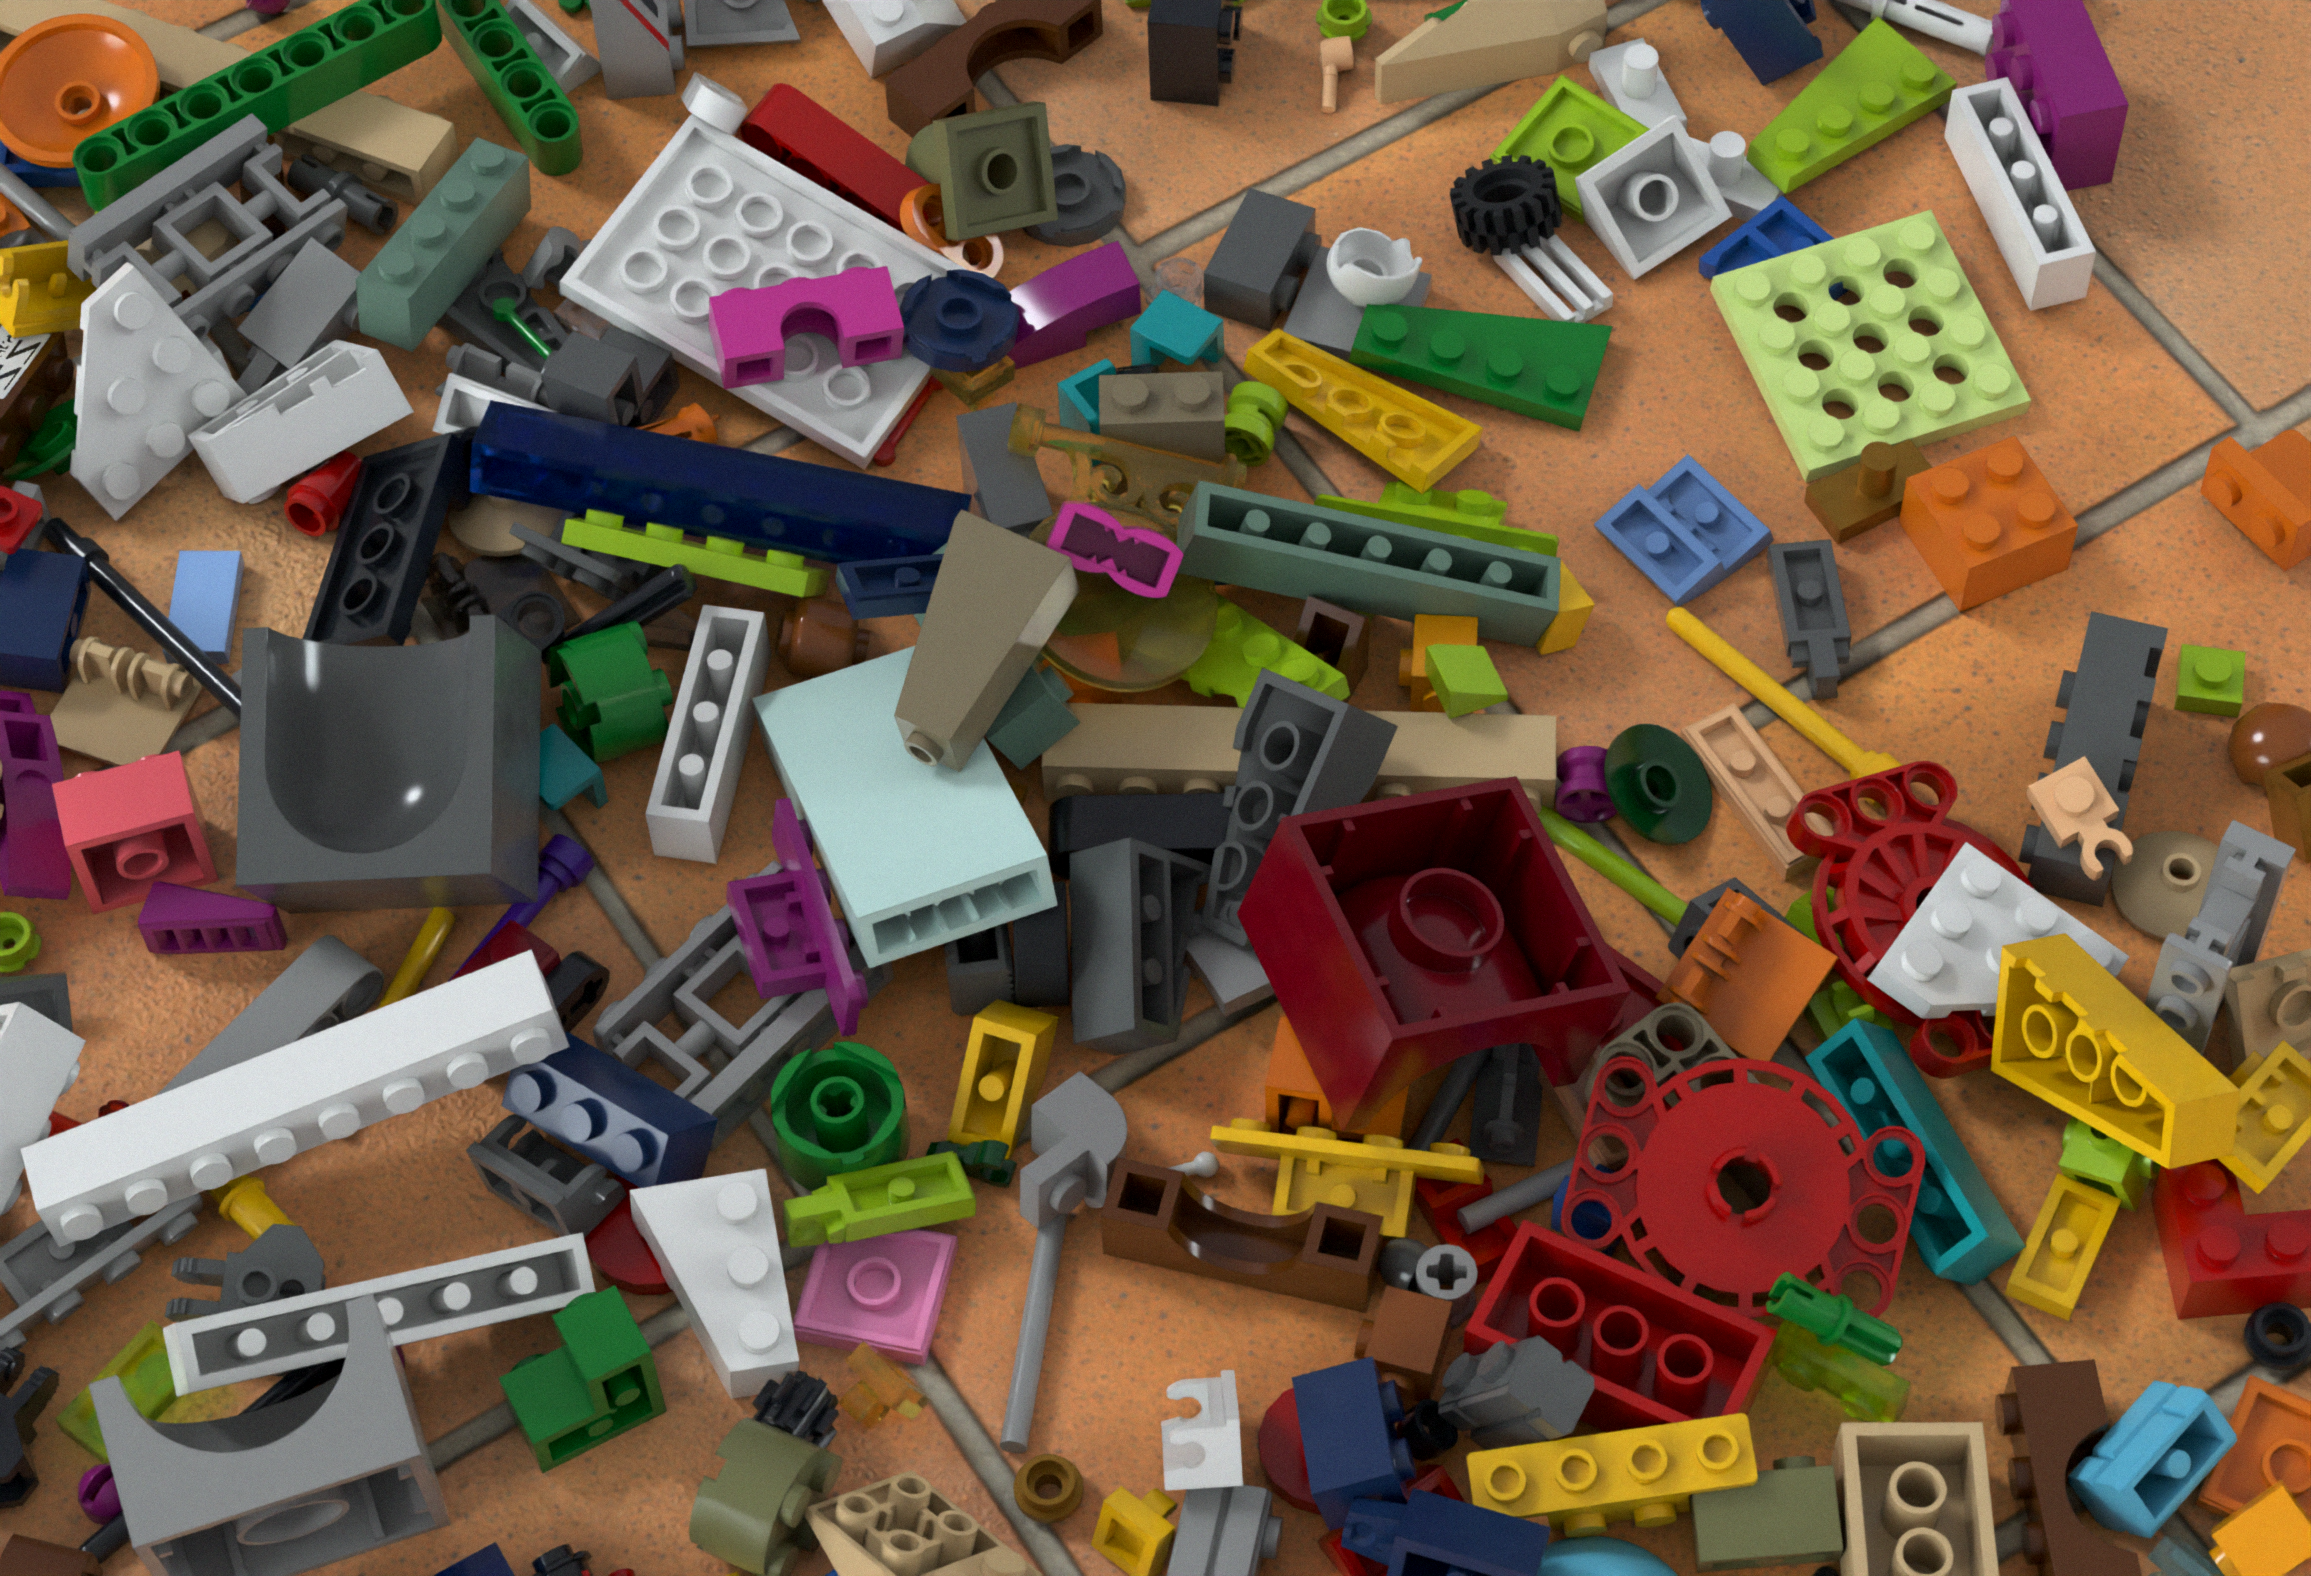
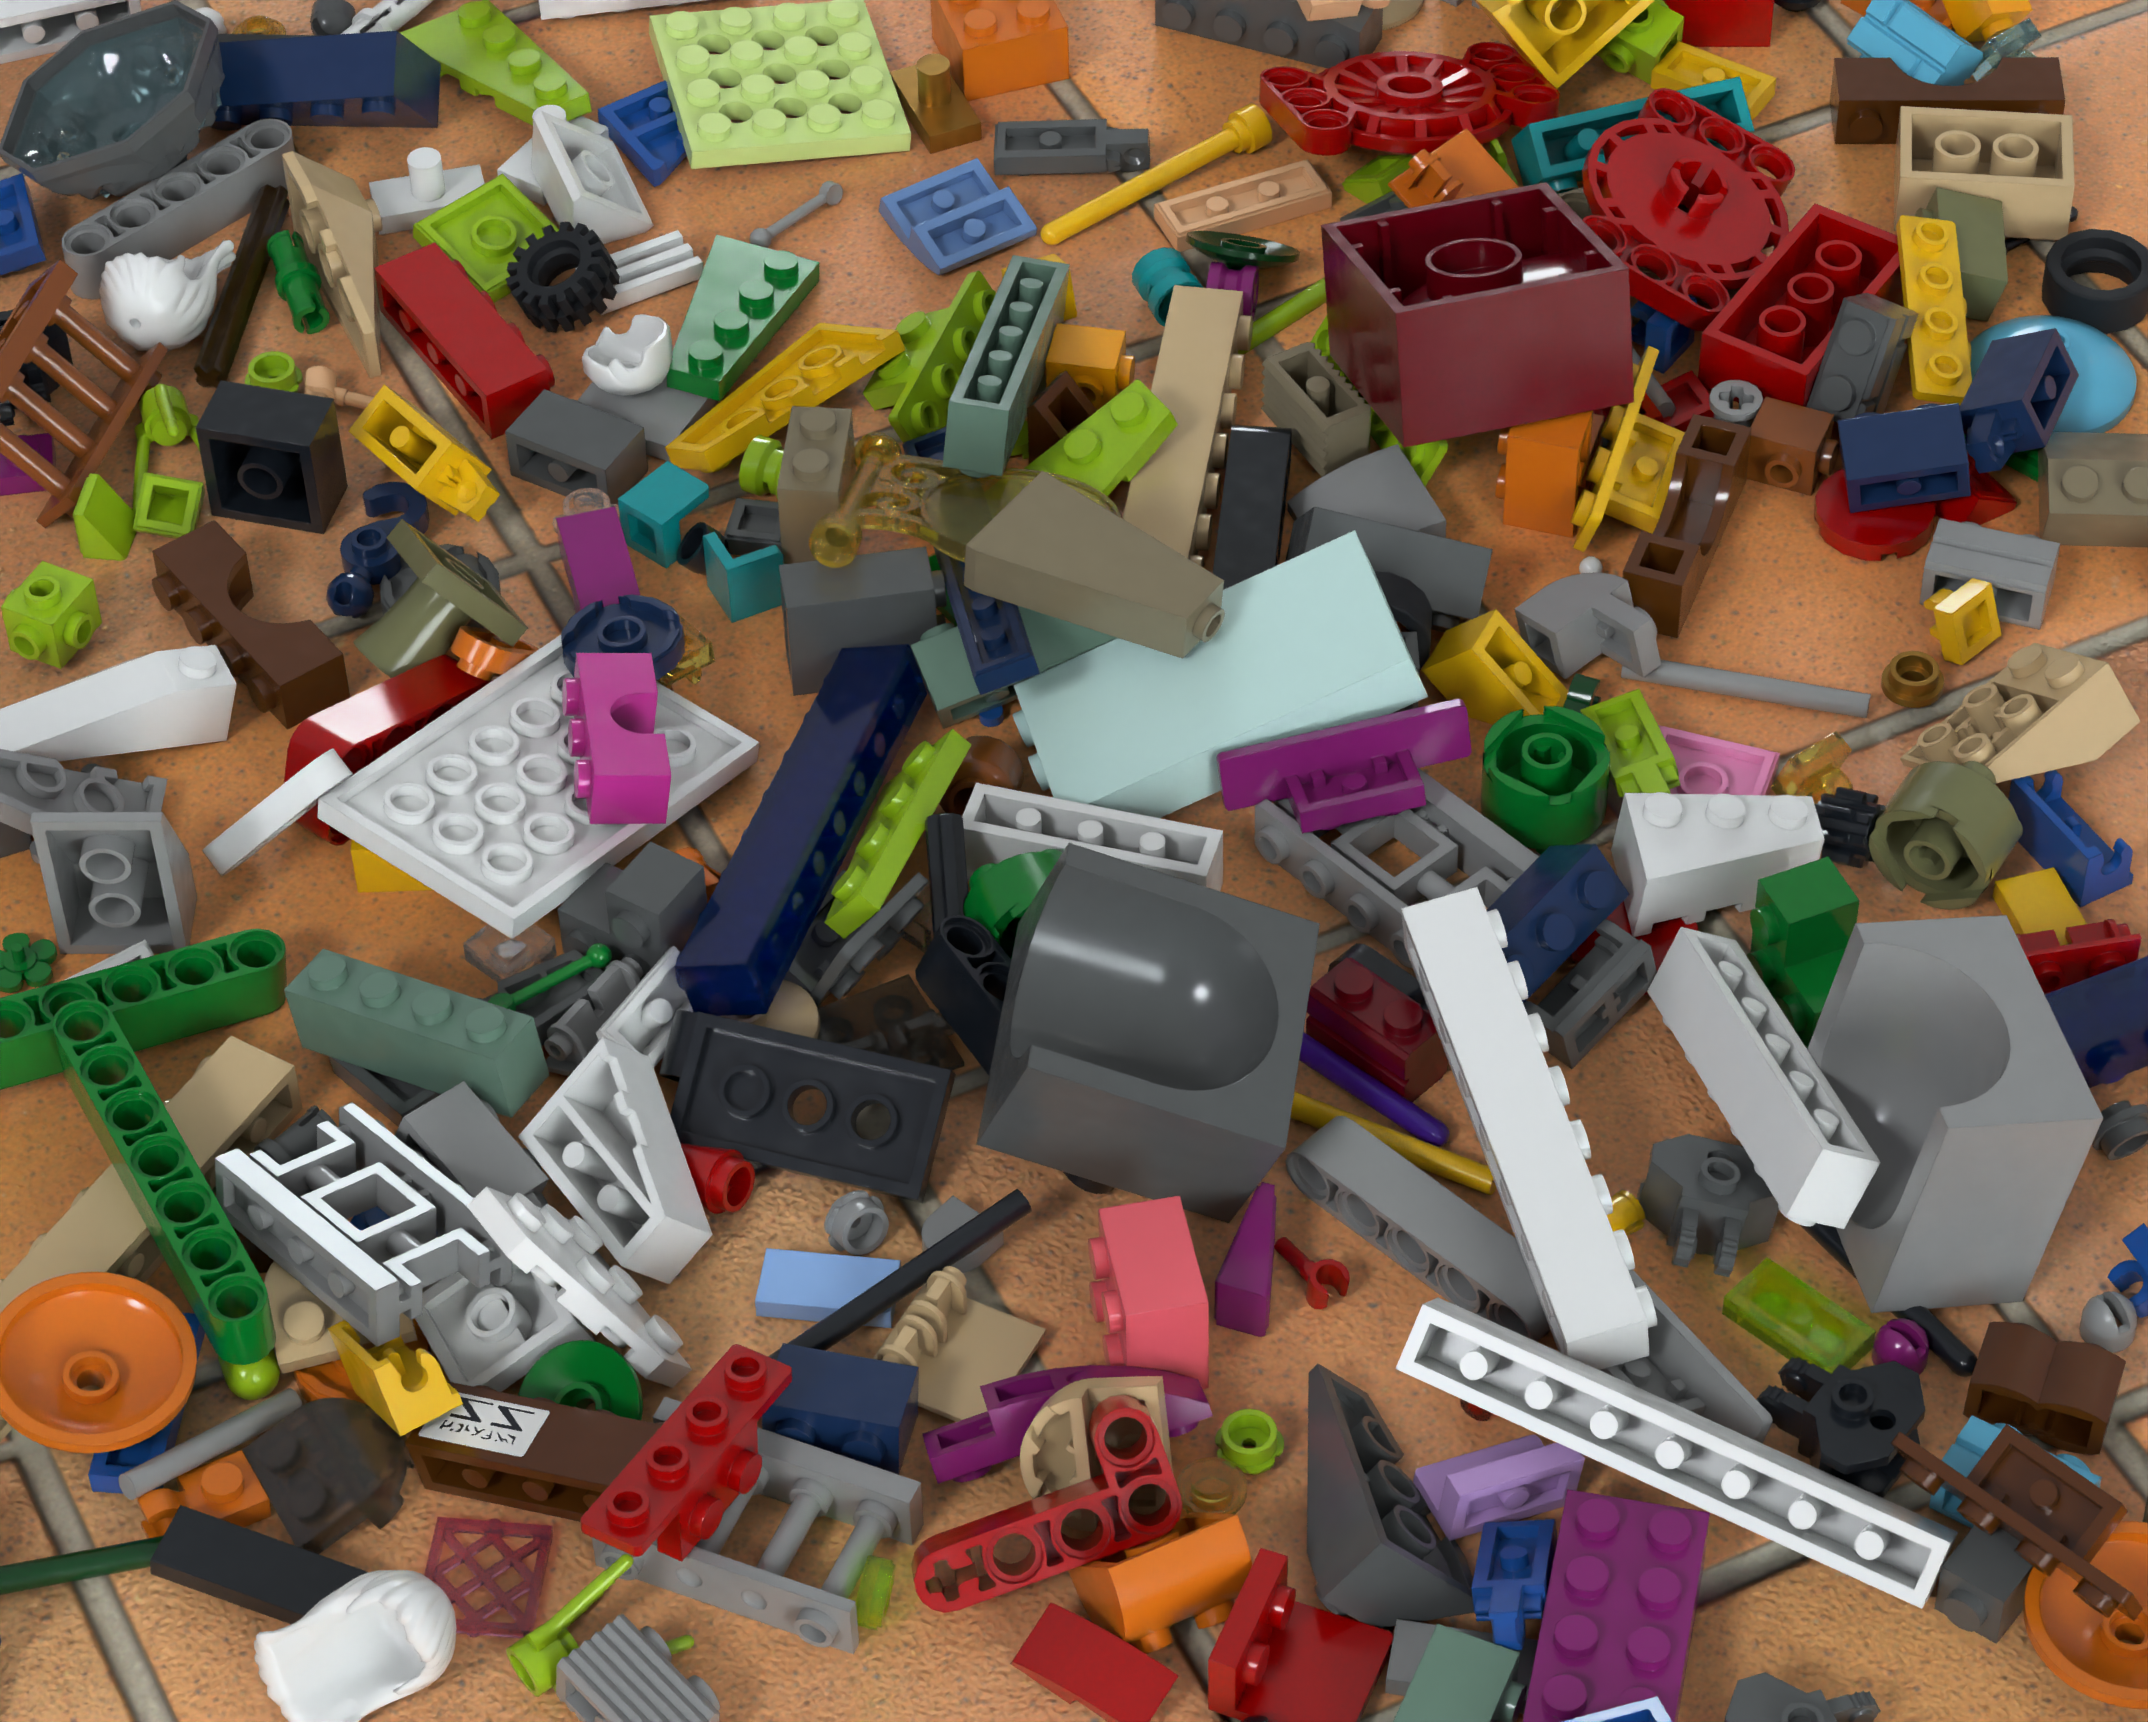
camera: 85 degrees left, 10 degrees down
(208, 996) = (1315, 1273): none -> red hand
(271, 609) = (856, 1223): none -> light grey plate
(553, 258) = (440, 962): light grey piece -> none
(1112, 130) = (367, 551): none -> dark blue piece
(1131, 555) = (1006, 470): dark pink brick -> none
(1206, 1447) = (1886, 550): white hinge -> none
(1221, 138) = (425, 455): none -> yellow hinge
(1295, 759) = (1255, 427): dark grey wedge -> none
(1411, 145) = (462, 337): none -> red brick
(1463, 678) = (1135, 330): lime slope -> none
(1589, 722) = (1156, 276): none -> teal wheel
(1706, 417) = (829, 193): none -> light grey hinge
(1833, 1319) = (1803, 175): green axle -> none
(1860, 1385) = (1840, 191): clear neon green plate -> none
(1955, 938) = (1448, 60): white plate -> none

